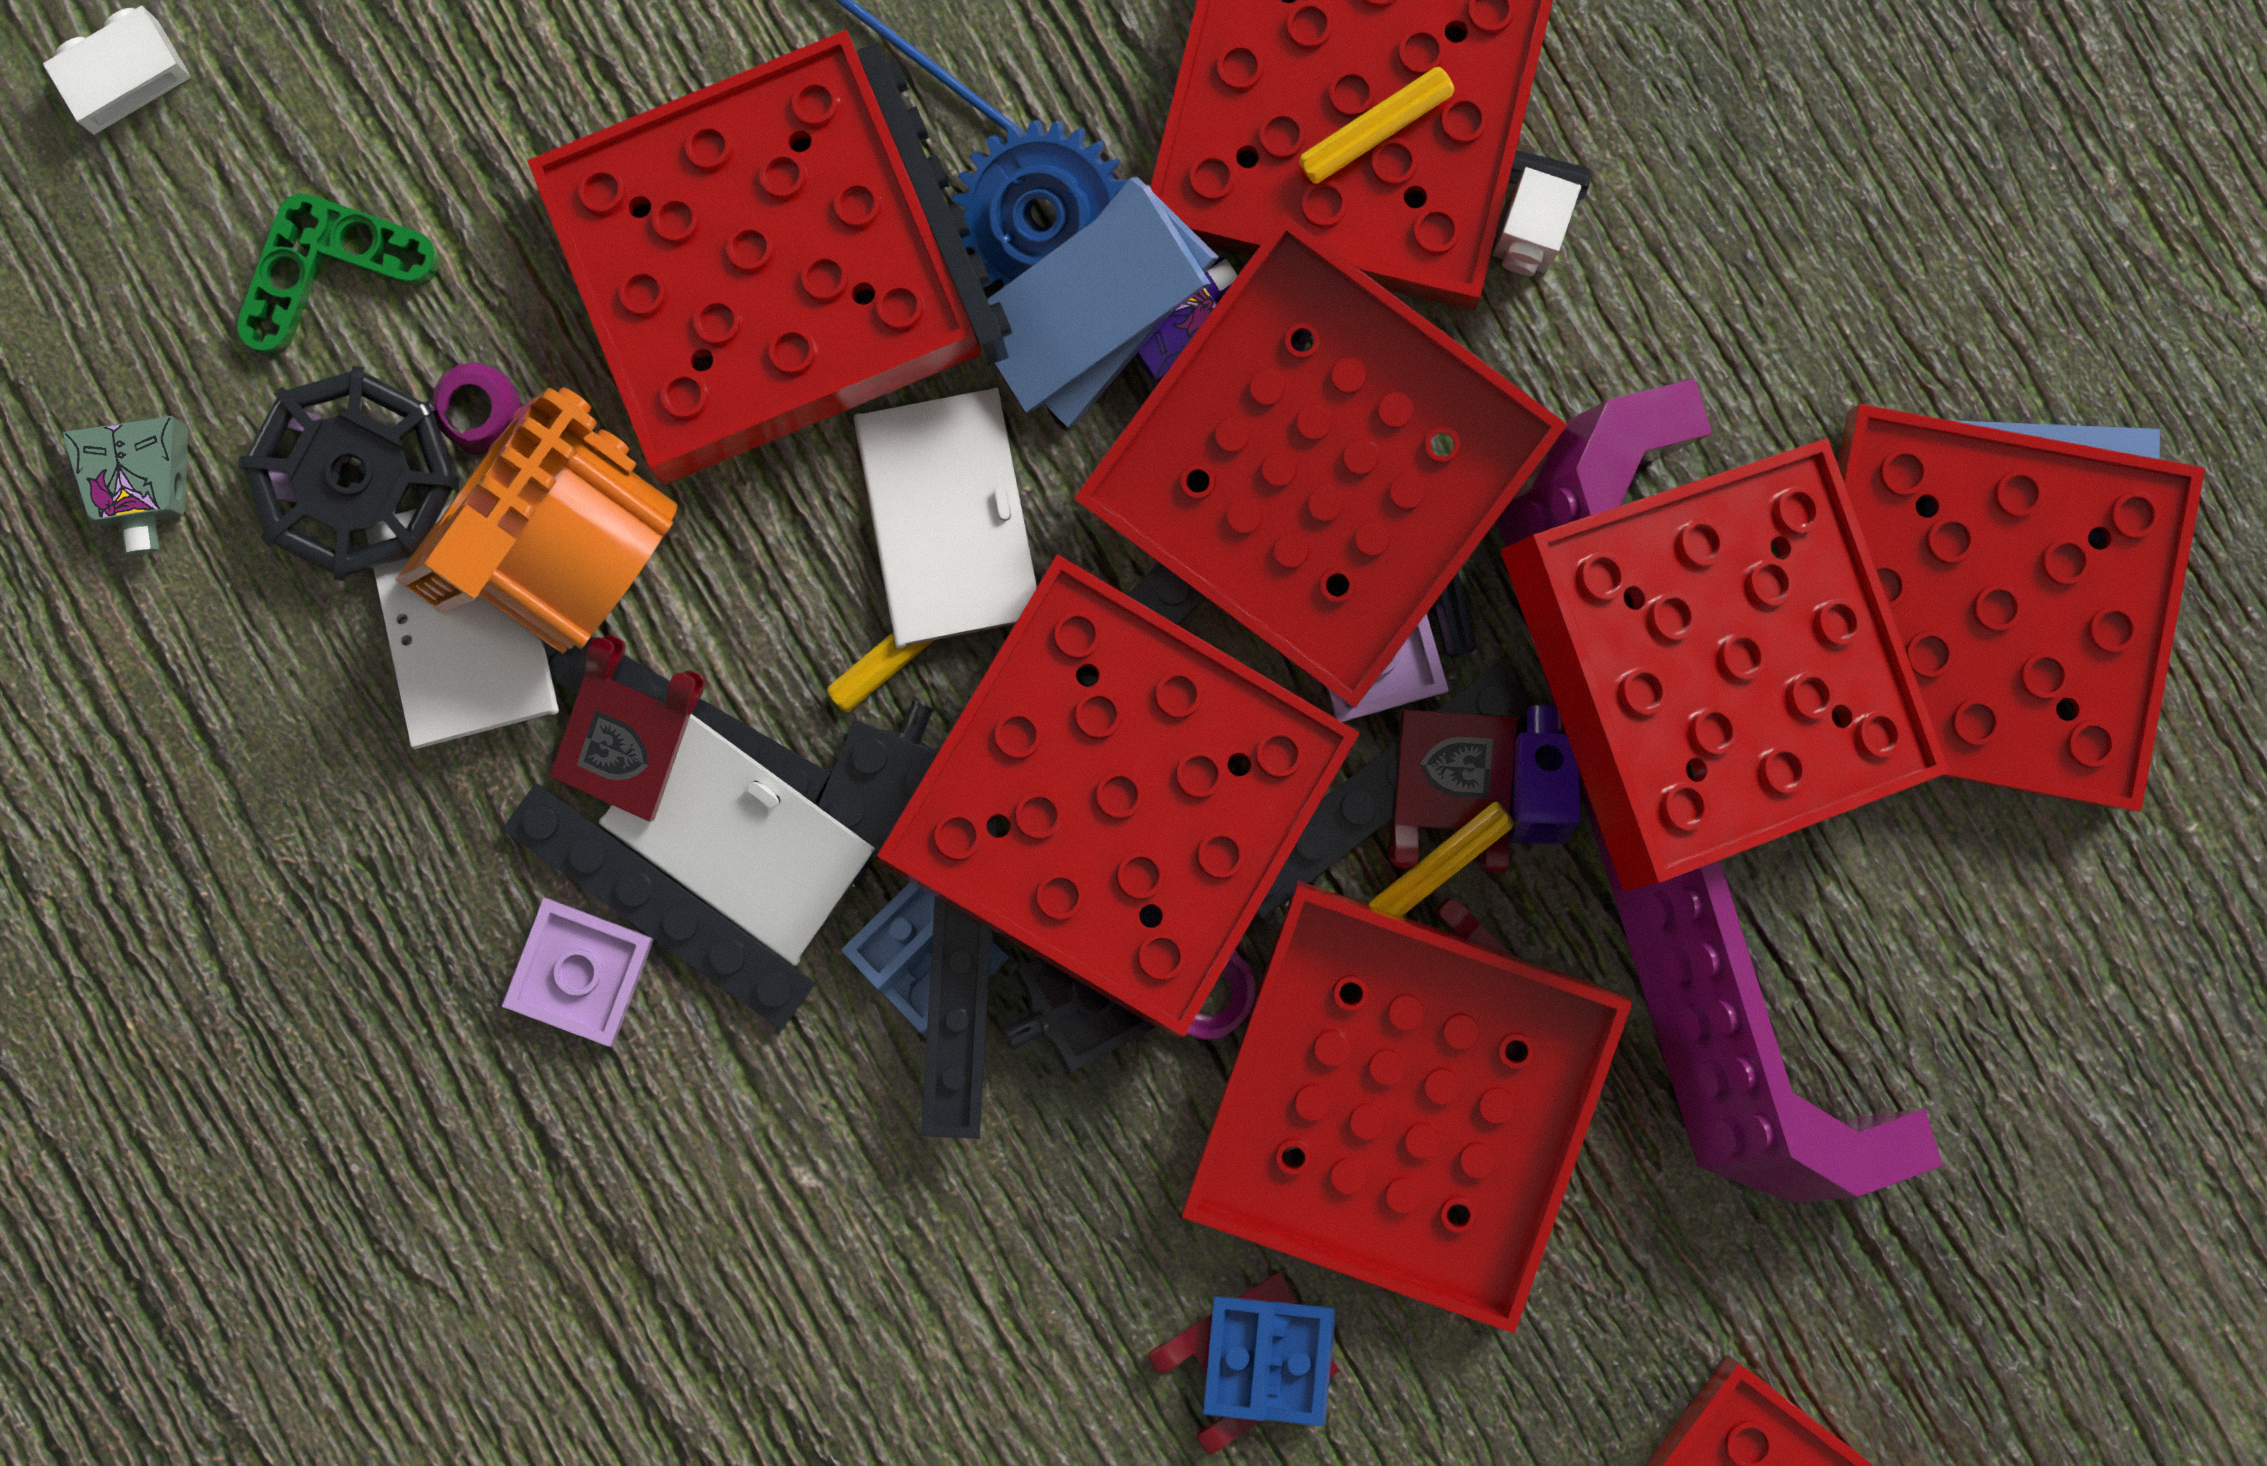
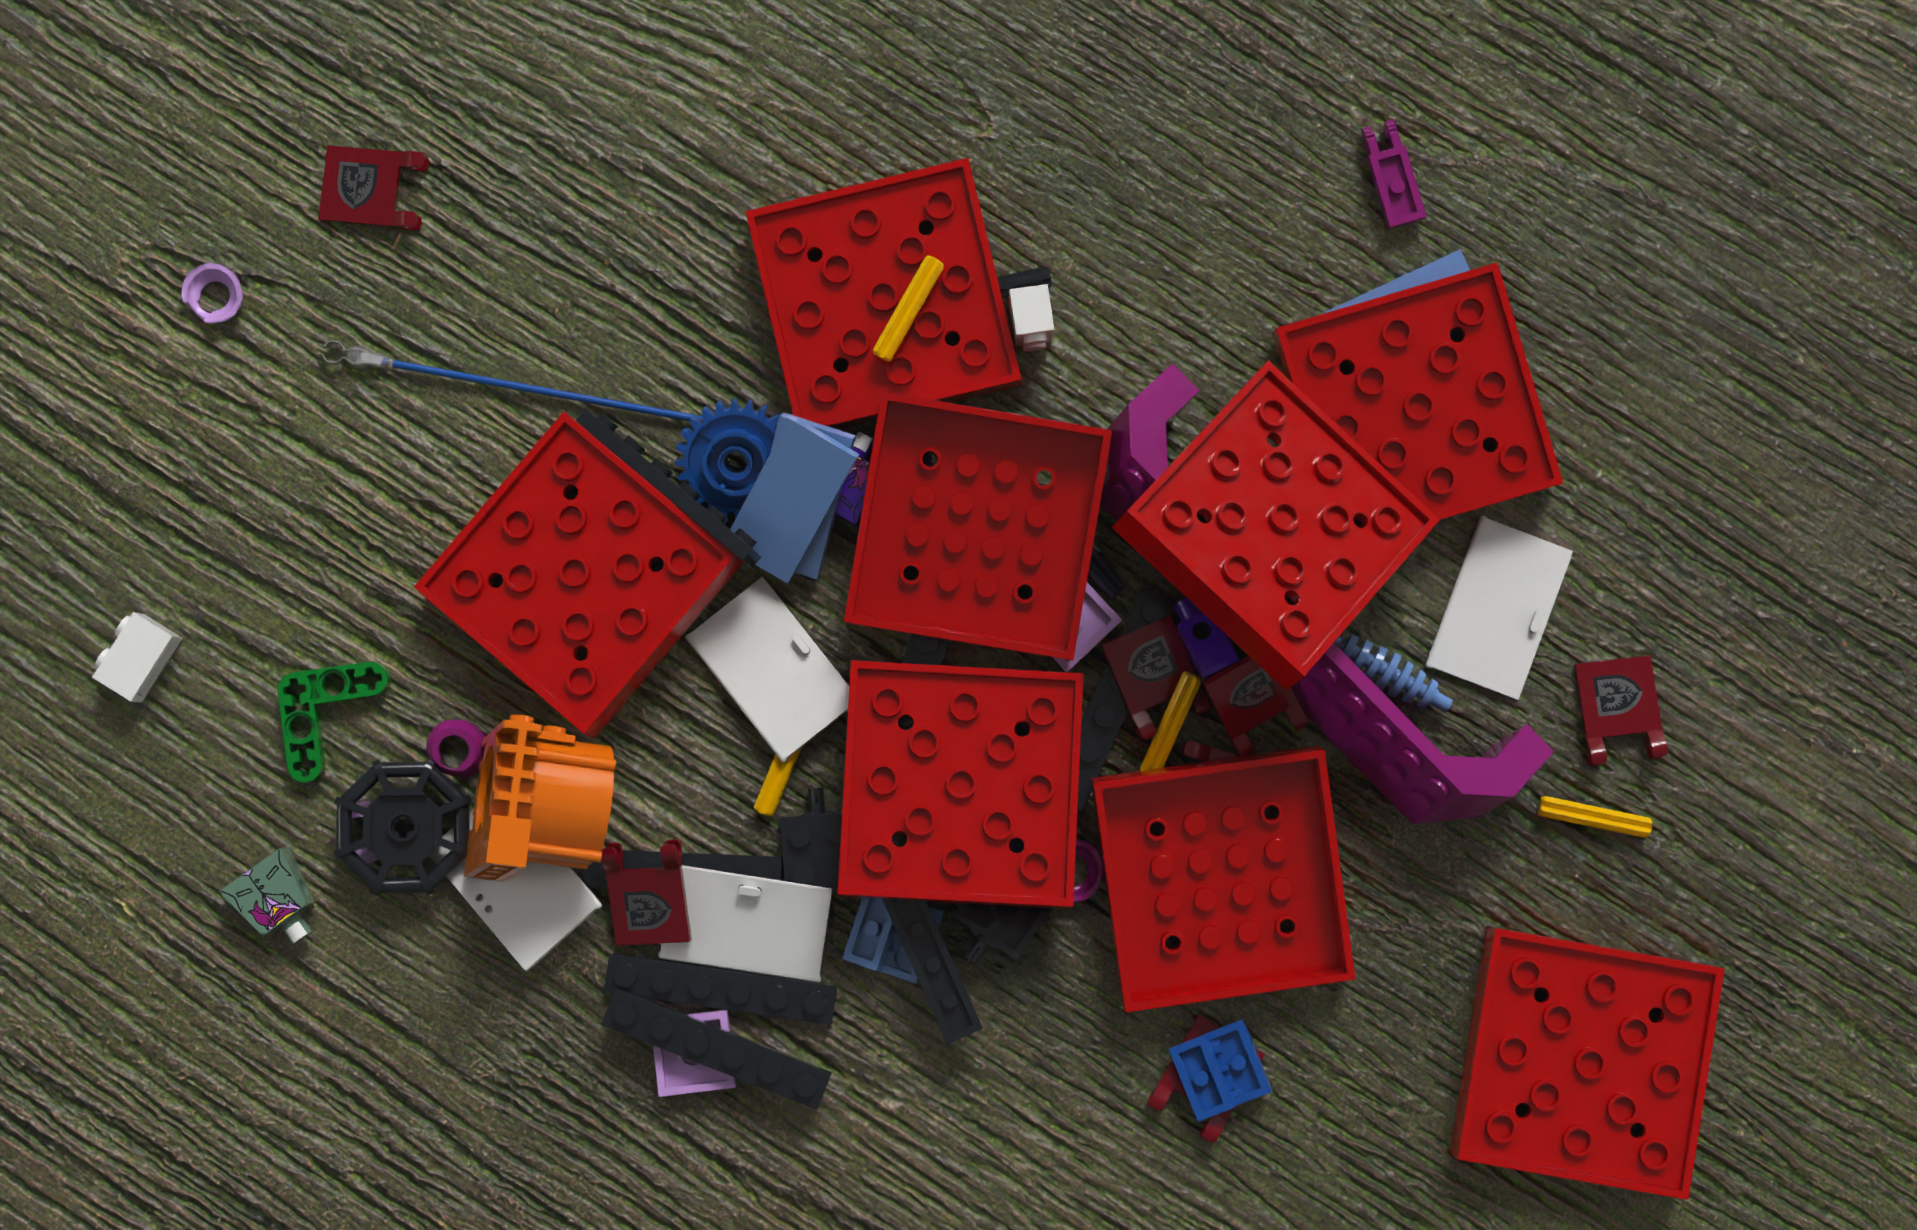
camera: 30 degrees left, 0 degrees up
(611, 981) = (716, 1048): none -> black plate
(1566, 879) = (1247, 697): none -> dark red flag
(1782, 963) = (1388, 672): none -> medium blue piece
(1950, 1284) = (1595, 817): none -> yellow axle
(1960, 928) = (1493, 606): none -> white container
(2063, 1145) = (1619, 700): none -> dark red flag
(2119, 288) = (1393, 178): none -> magenta hinge

